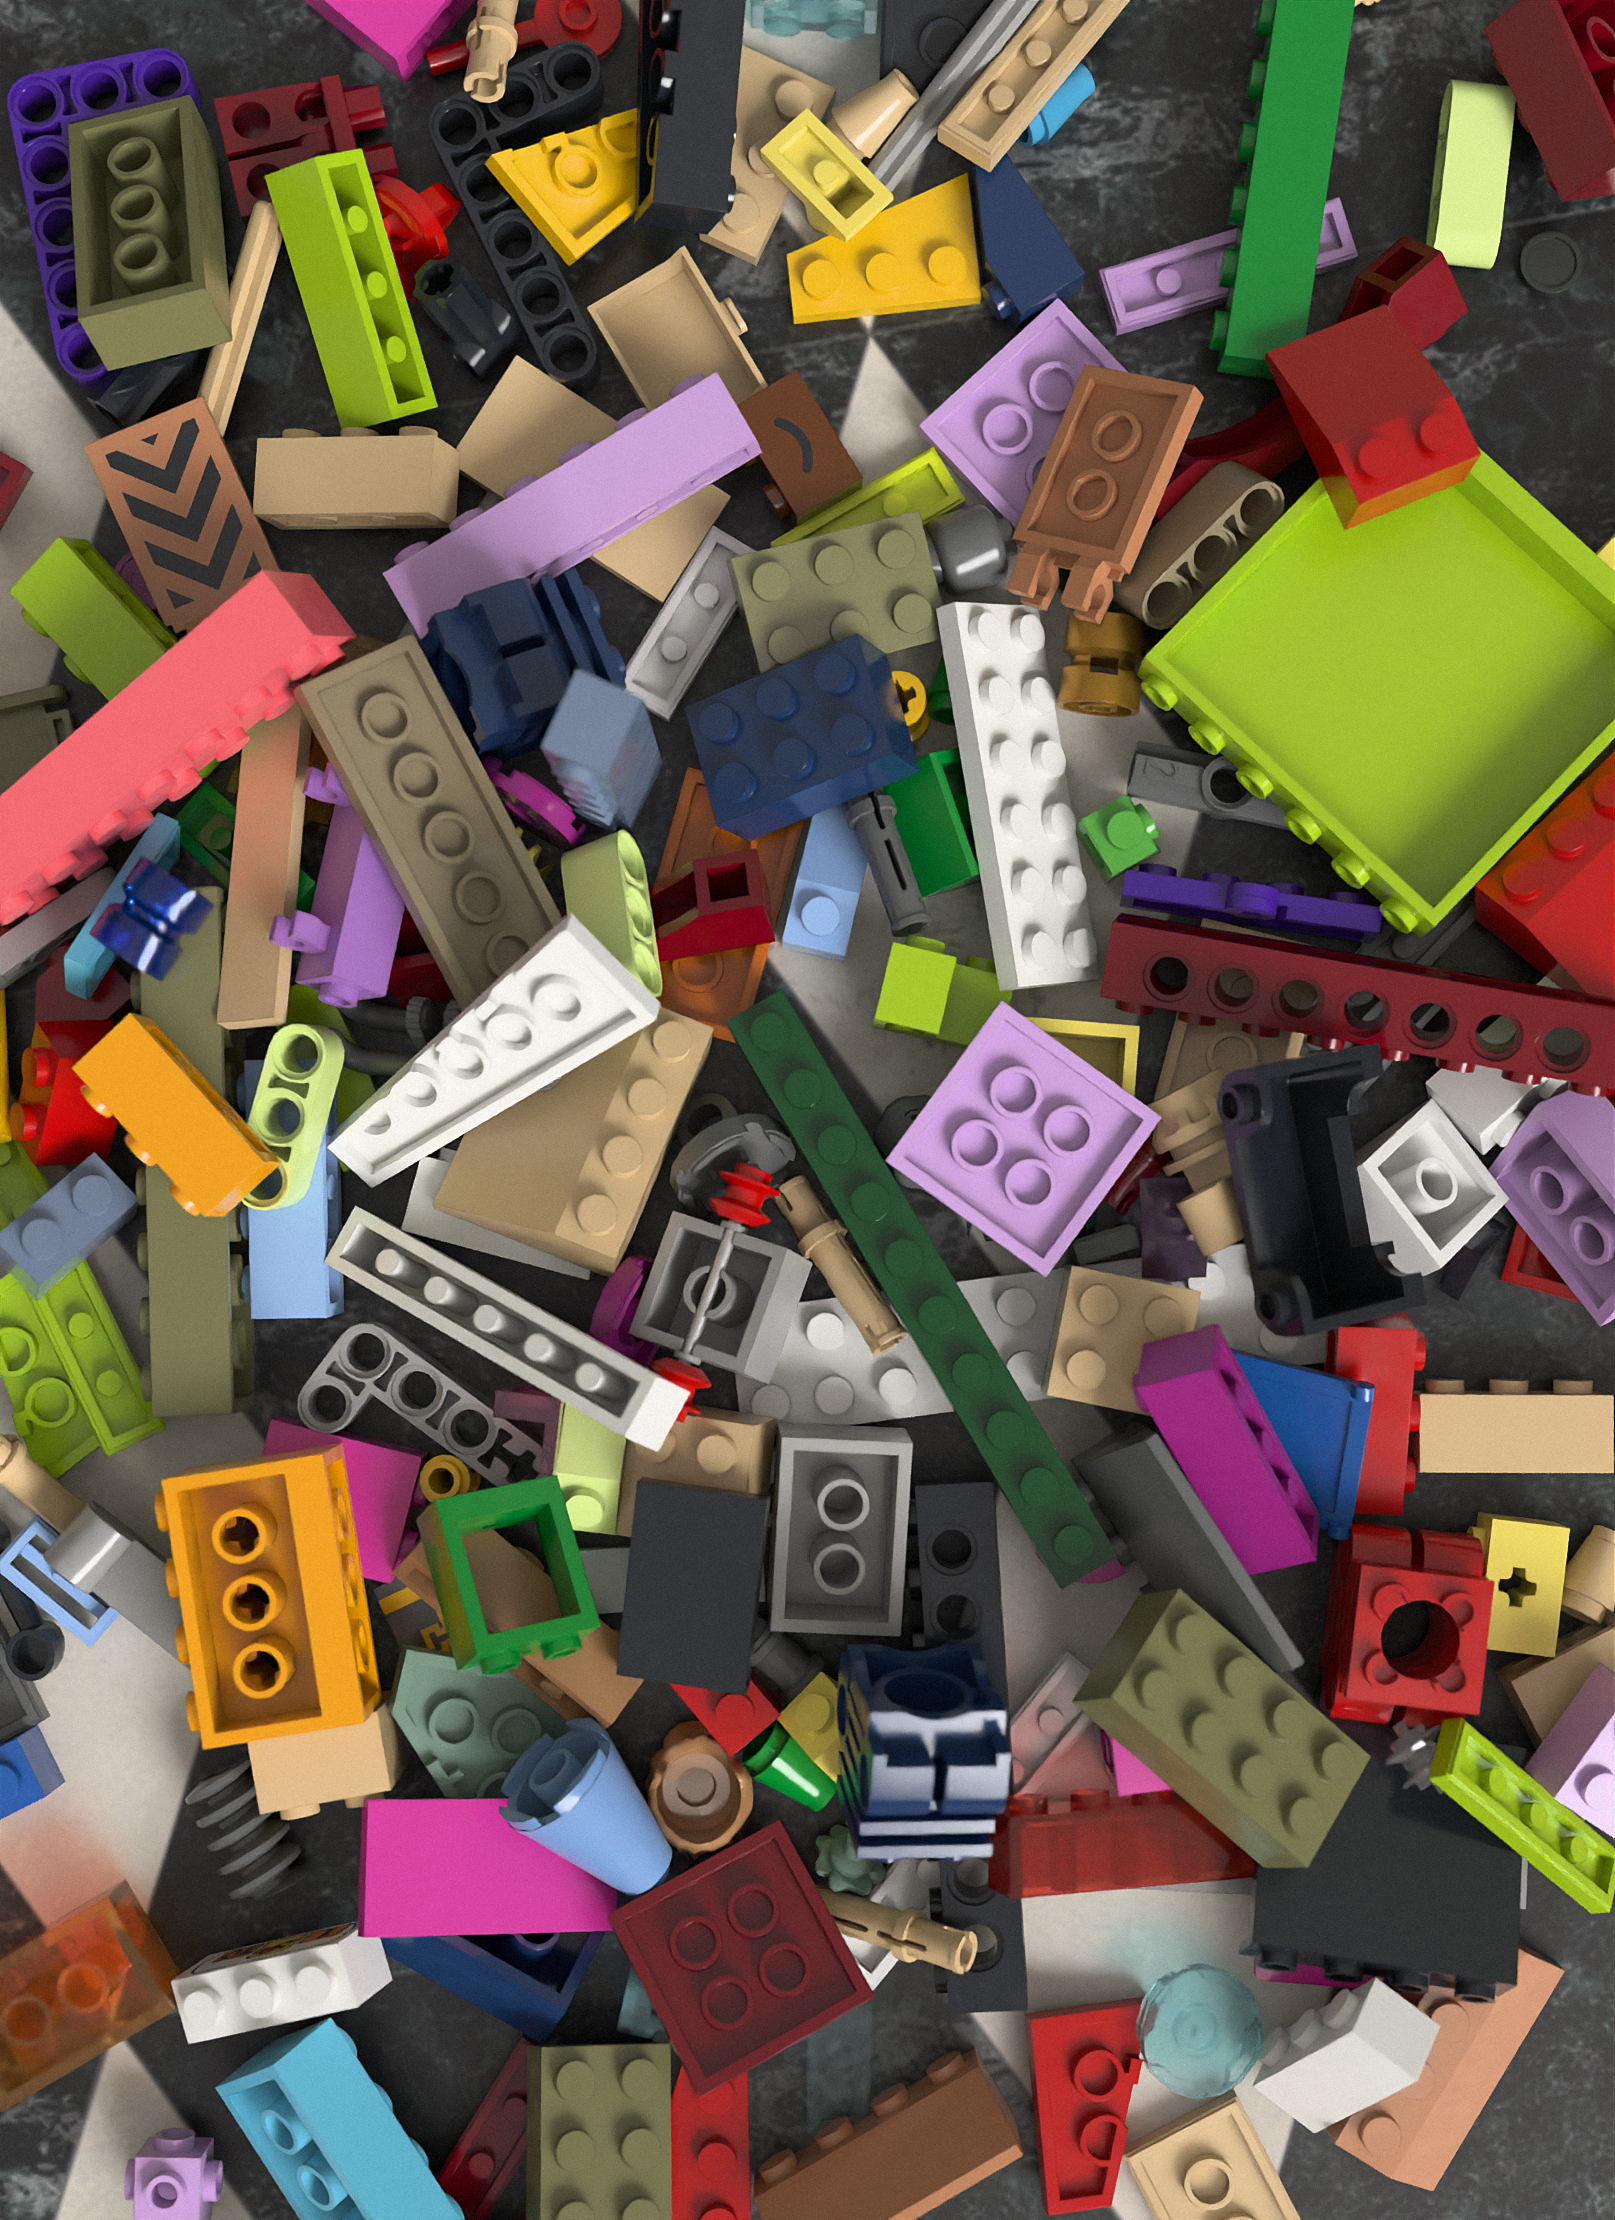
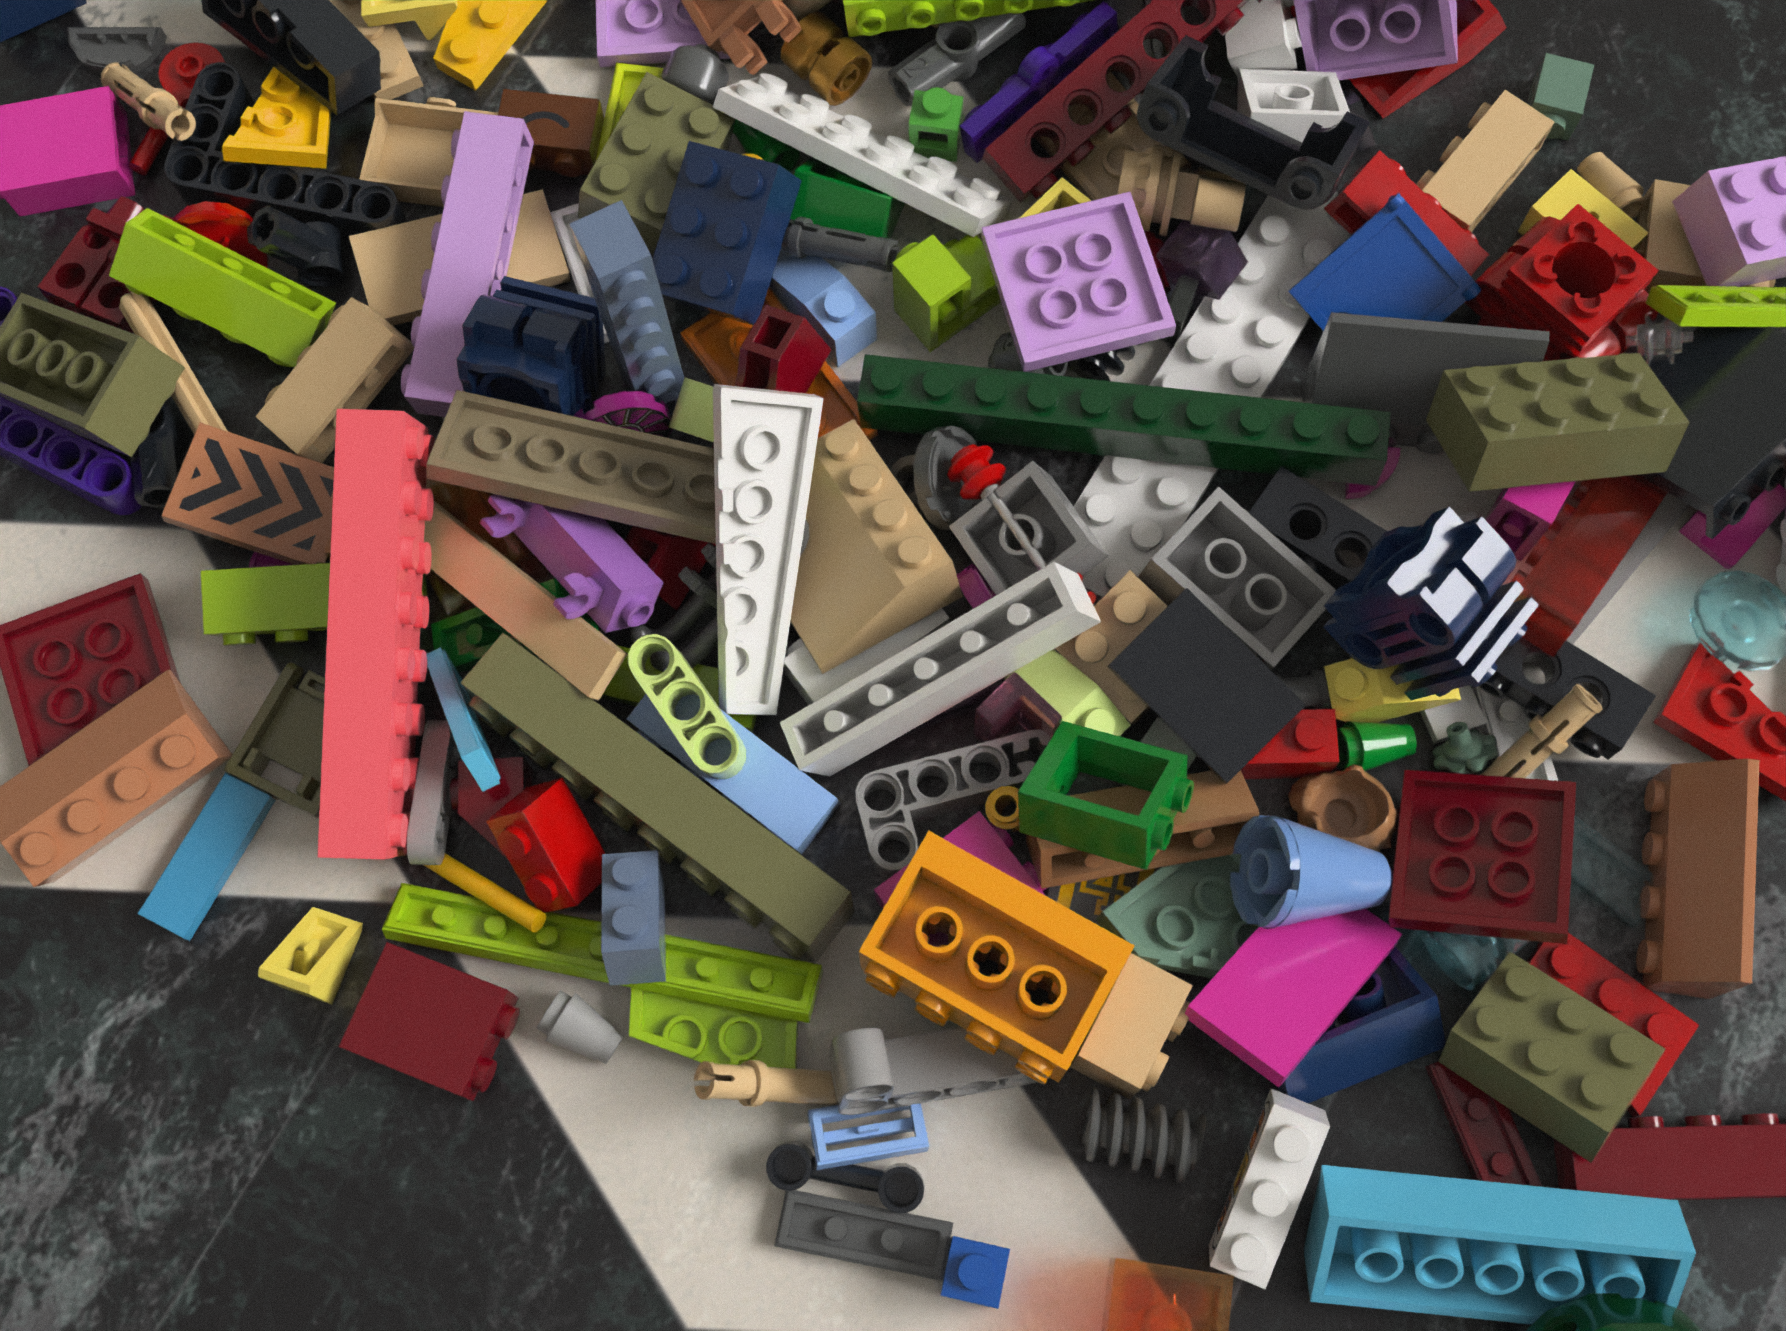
camera: 45 degrees left, 15 degrees down
(152, 919) = (489, 682): clear blue wheel -> none
(174, 1117) = (625, 762): light orange brick -> none
(845, 1275) = (1077, 465): tan pin -> none
(1102, 1333) = (1250, 328): tan brick -> none
(1227, 1449) = (1332, 278): magenta brick -> none

